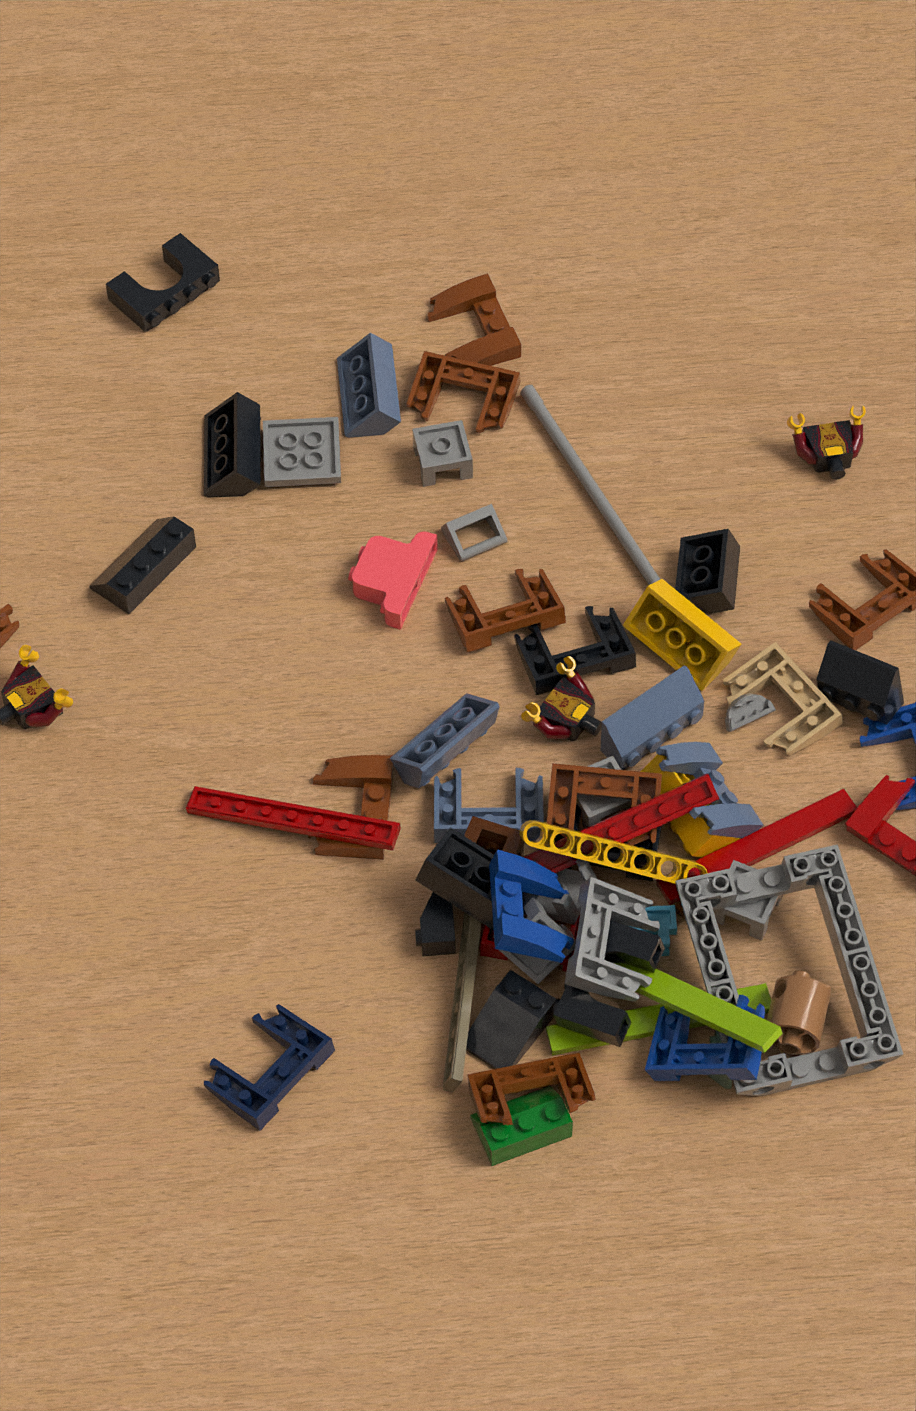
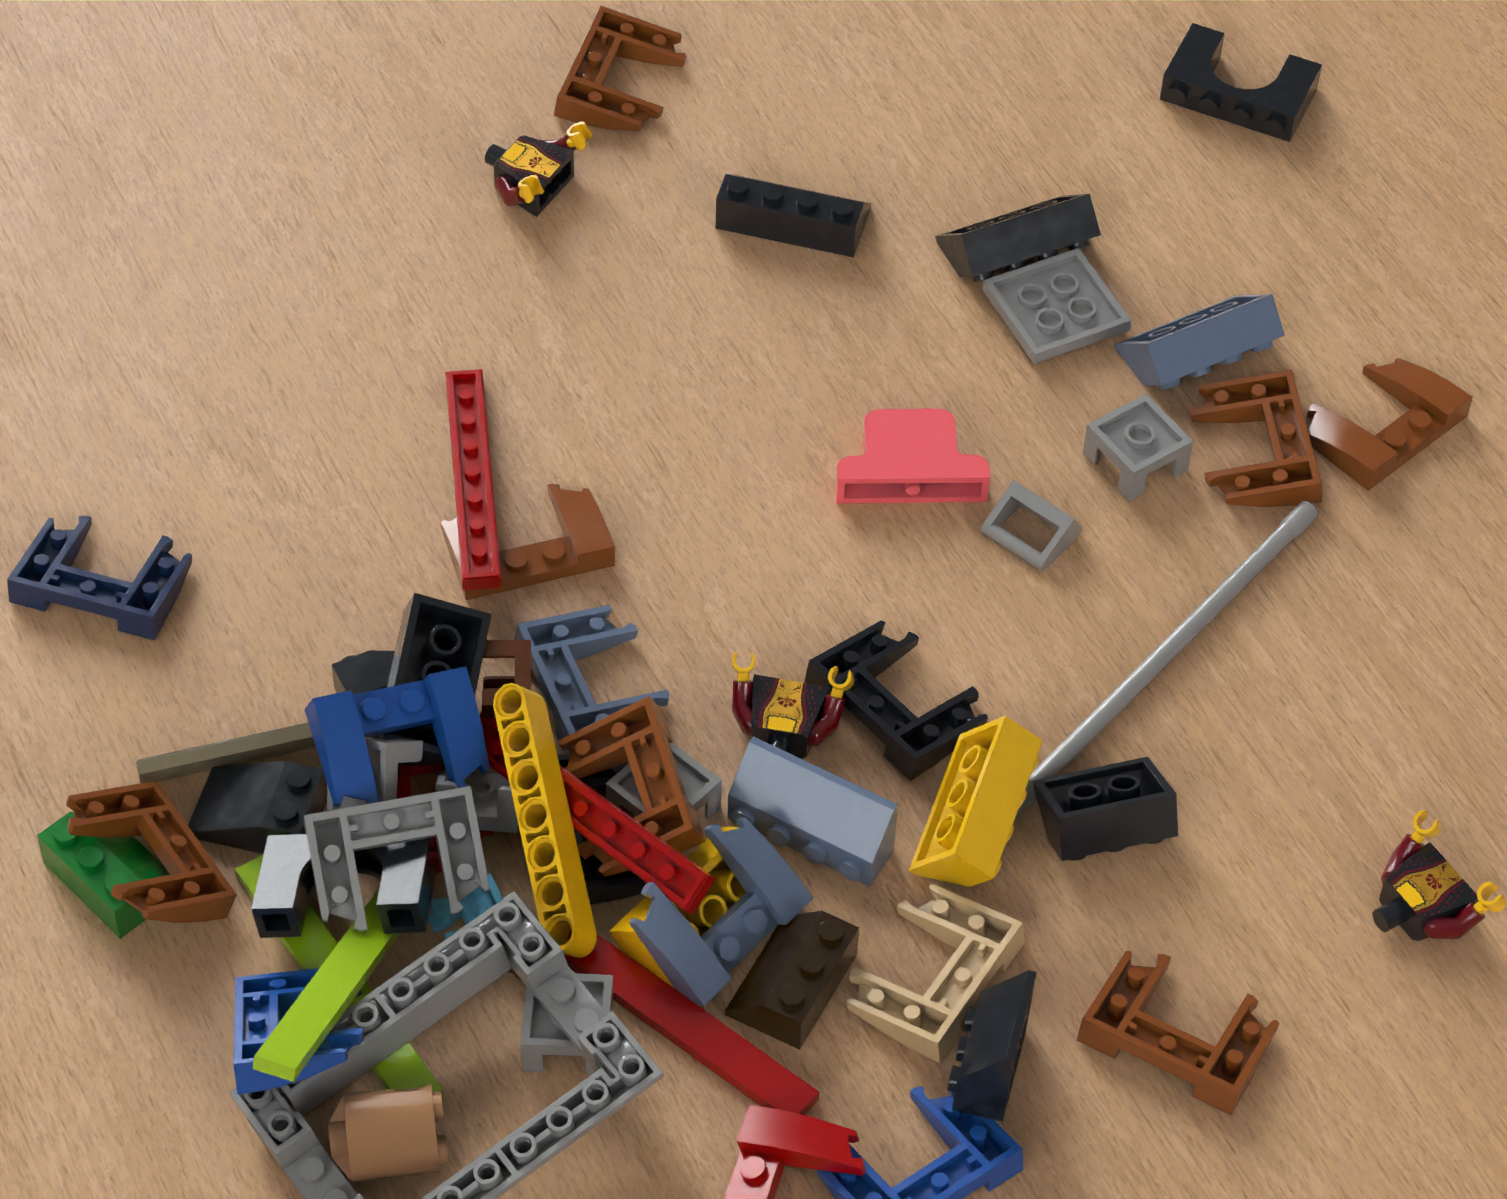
camera: 65 degrees right, 5 degrees down
(444, 739) = (660, 590): sand blue slope -> none
(540, 607) = (938, 639): dark orange wedge -> none
(747, 709) = (897, 930): light grey plate -> none
(760, 772) = (795, 976): none -> dark brown slope

